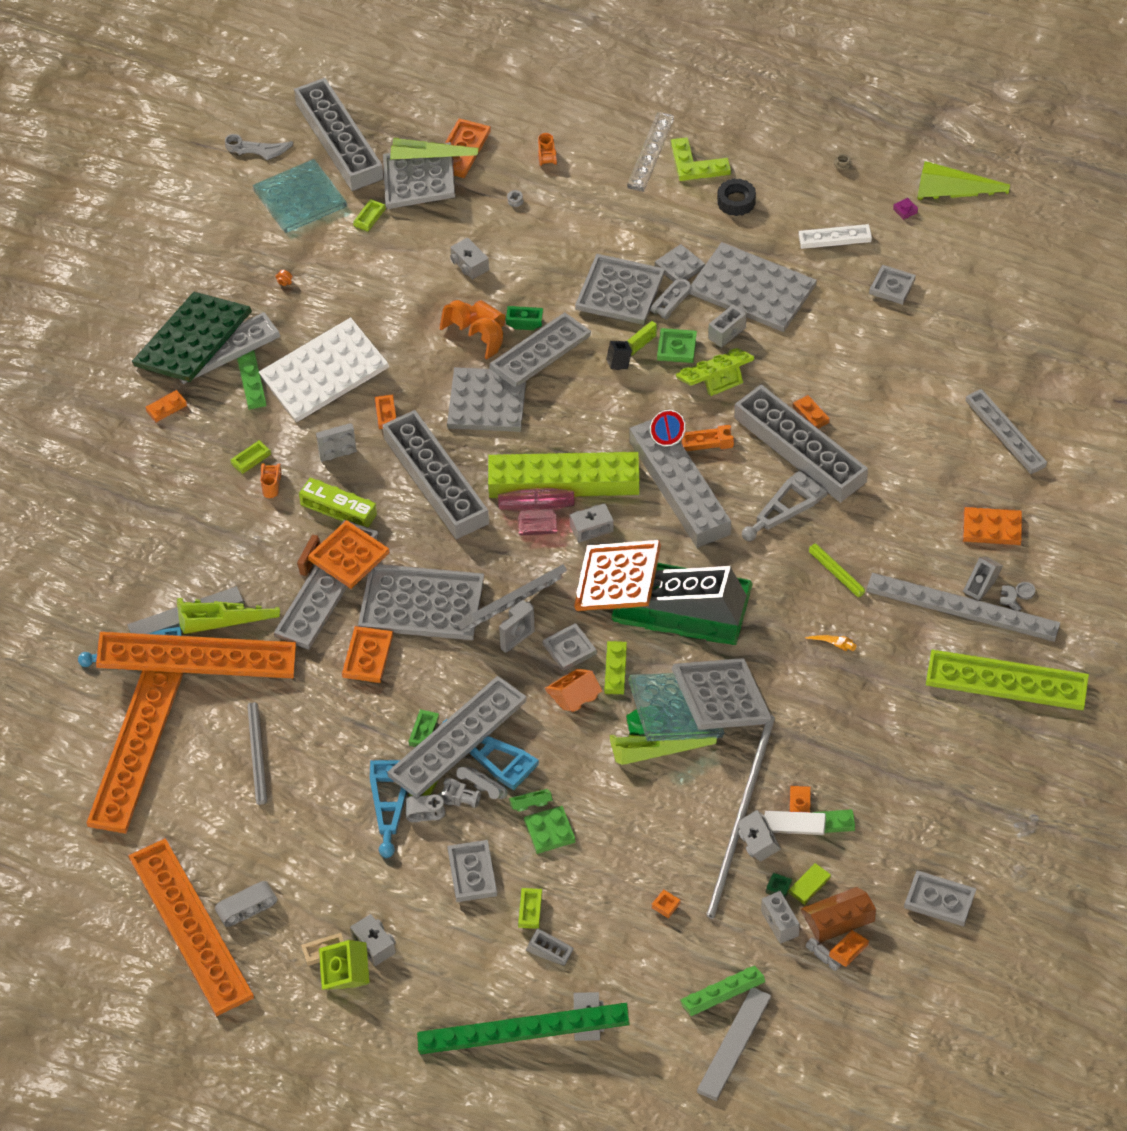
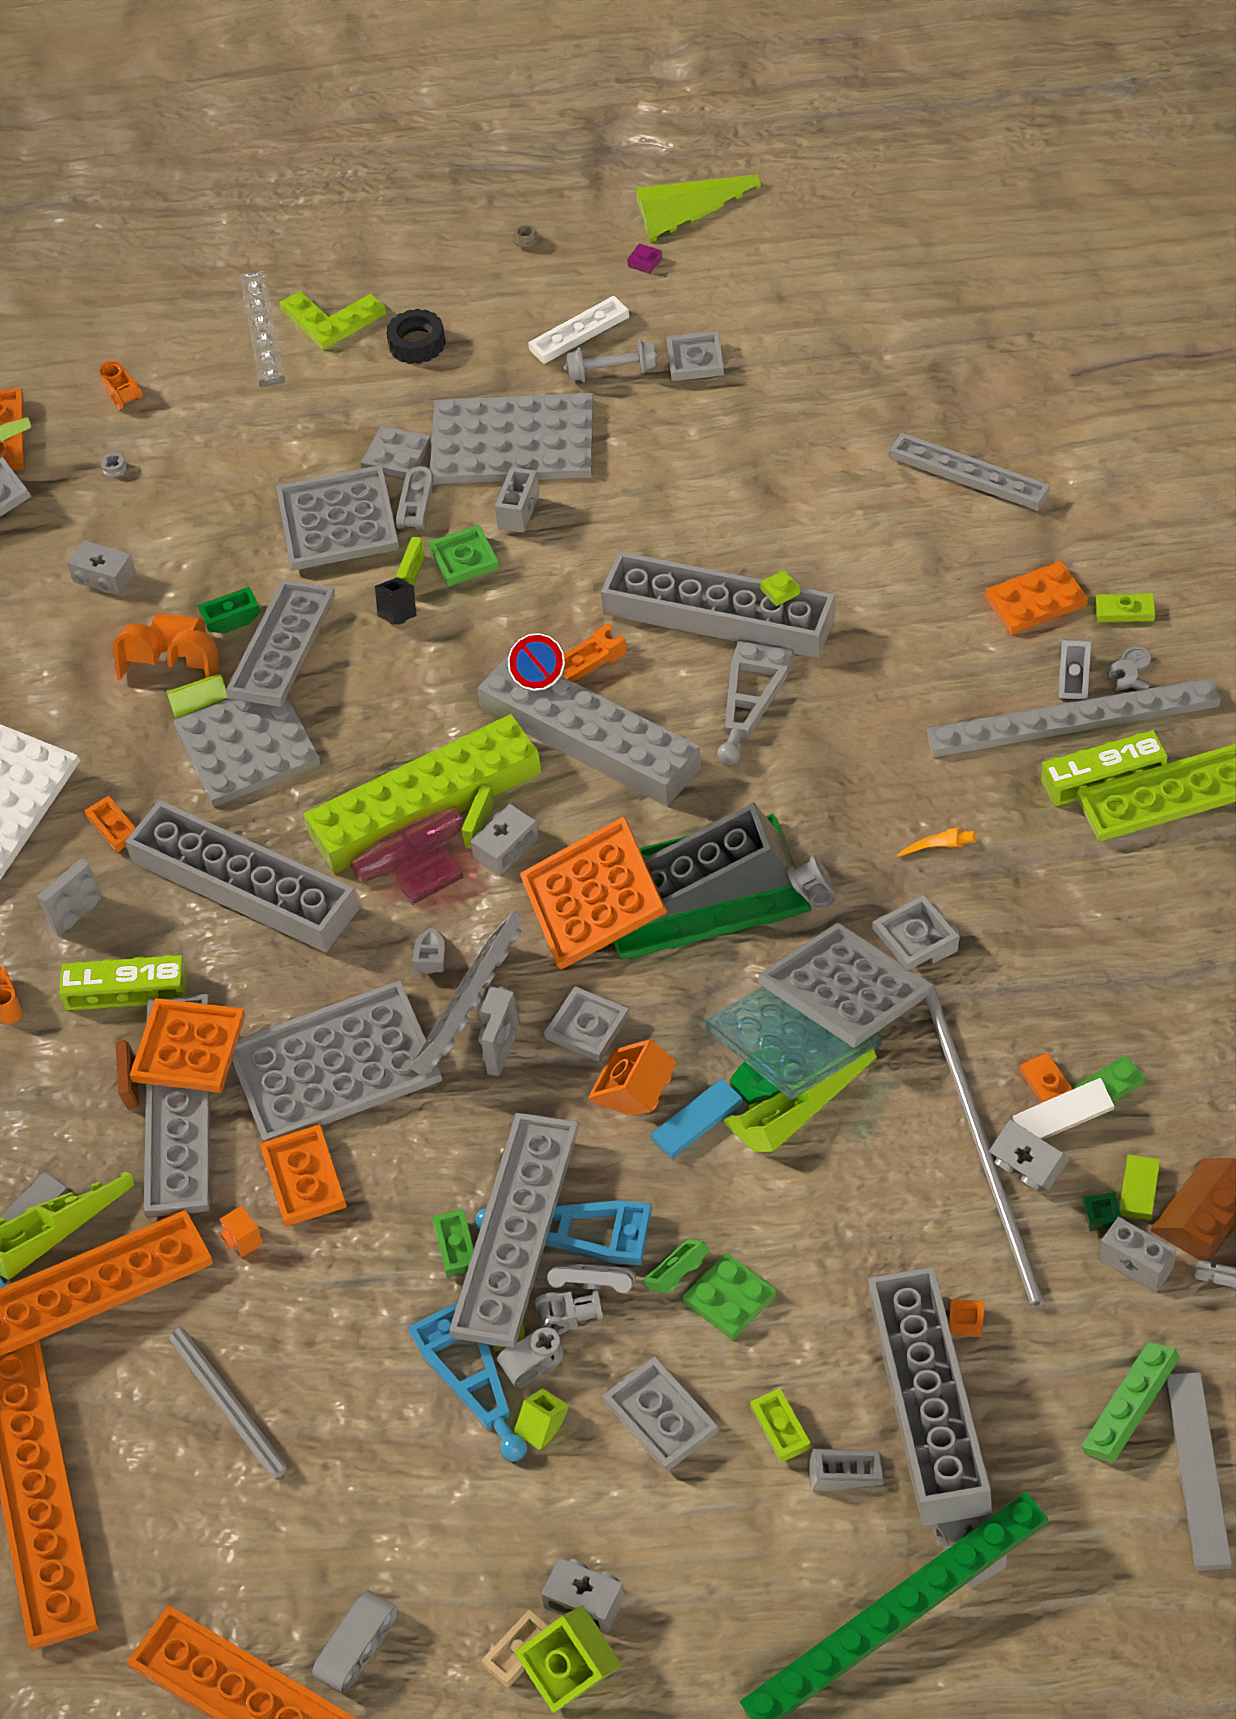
camera: 25 degrees left, 0 degrees up
(316, 668) = (240, 1232): none -> orange plate
(409, 841) = (540, 1418): none -> lime brick
(475, 359) = (197, 695): none -> lime tile
(510, 566) = (429, 952): none -> light grey plate
(587, 500) = (478, 814): none -> lime tile
(595, 728) = (696, 1119): none -> dark azure tile
(612, 930) = (929, 1397): none -> light grey brick
(615, 667) = (668, 1021): lime plate -> none
(718, 373) = (545, 561): lime bracket -> none
(743, 629) = (813, 883): none -> light grey piece
(782, 685) = (917, 933): none -> light grey plate
(811, 412) = (700, 557): orange plate -> none
(817, 258) = (645, 356): none -> light grey piece
(837, 449) = (780, 587): none -> lime plate
(840, 573) = (877, 747): lime axle -> none
(955, 641) = (1100, 764): none -> lime brick
(1040, 557) = (1125, 607): none -> lime plate

